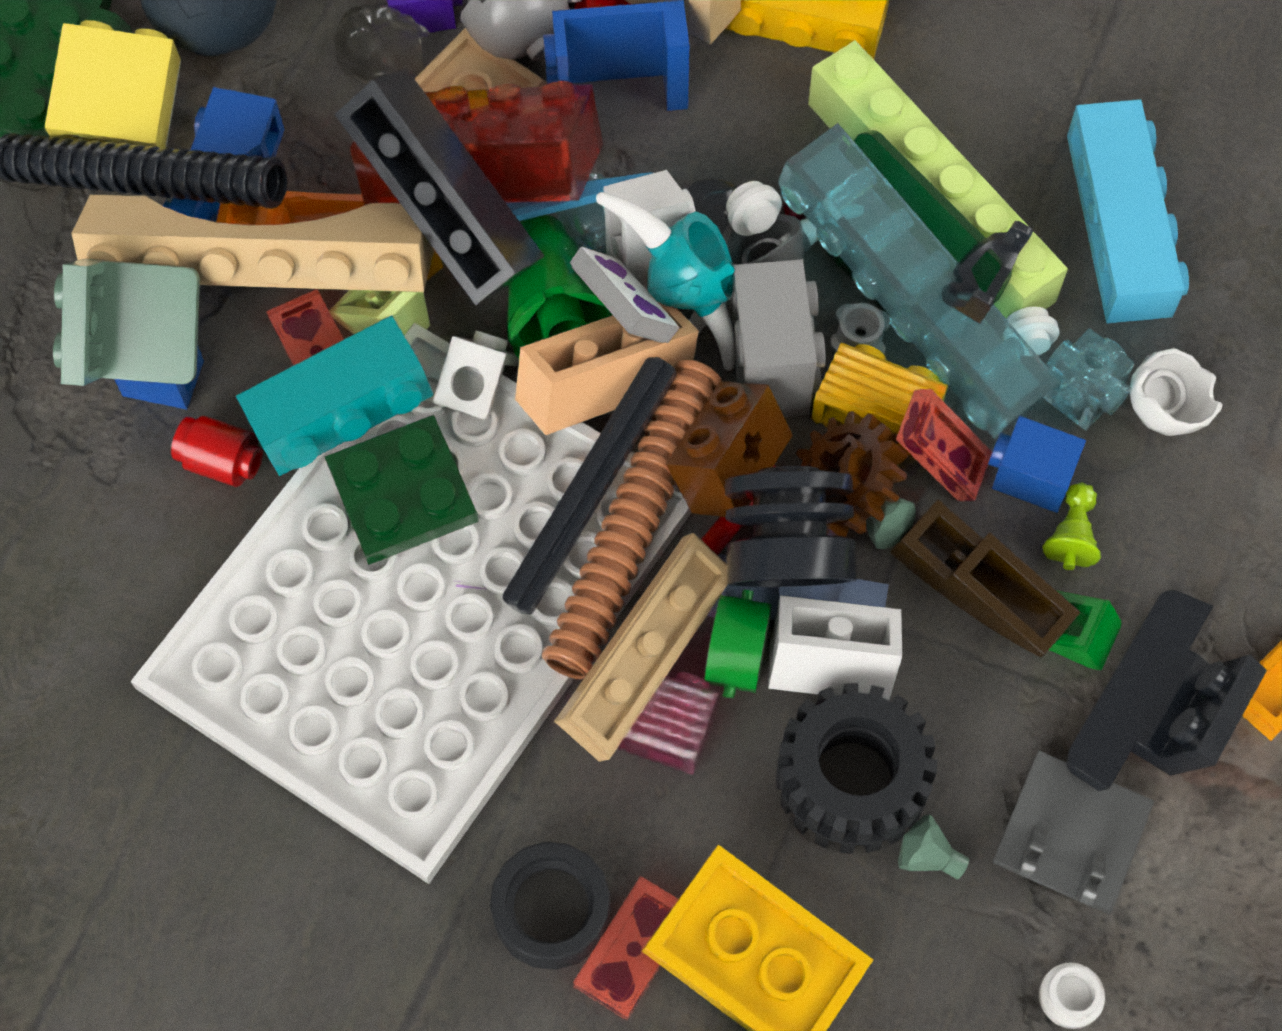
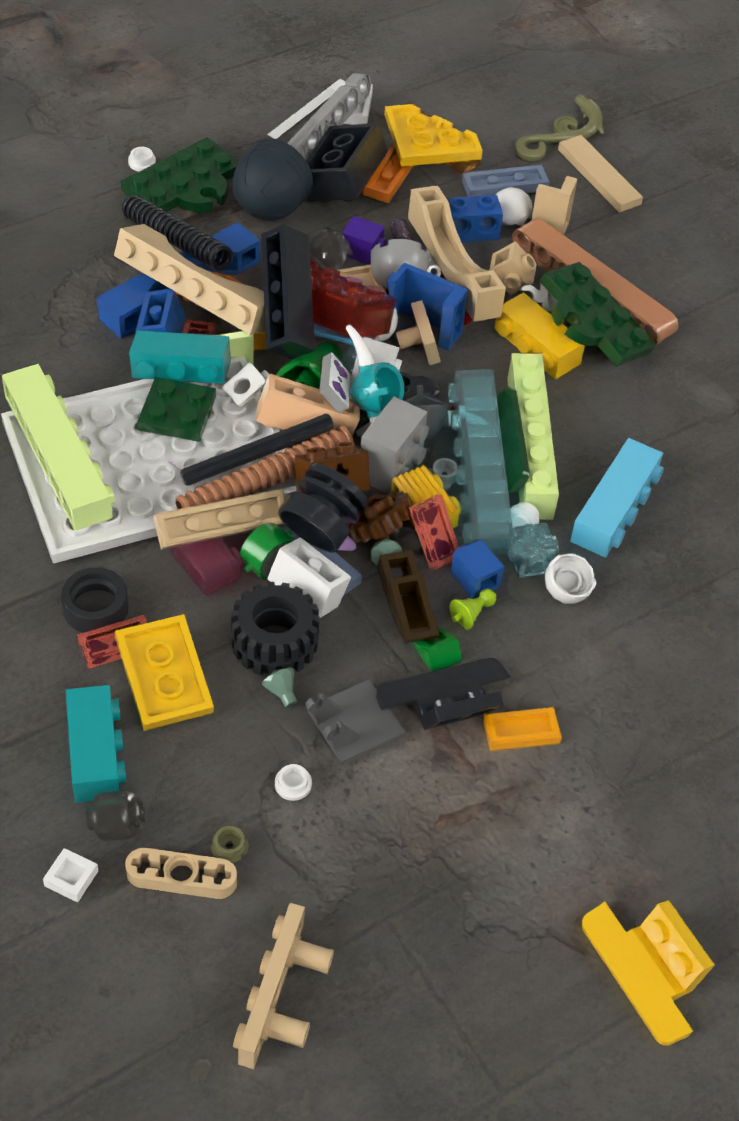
camera: 30 degrees right, 15 degrees down
(113, 85) = (197, 198): light yellow piece -> none
(126, 322) = (113, 274): bracket -> none
(217, 450) = (114, 354): red brick -> none
(240, 339) = (161, 312): none -> blue brick
(282, 685) = (58, 448): none -> yellowish green brick
(638, 109) = (420, 334): none -> tan tile
(753, 208) = (428, 387): white plate -> none
(1007, 247) = (529, 461): black helmet -> none

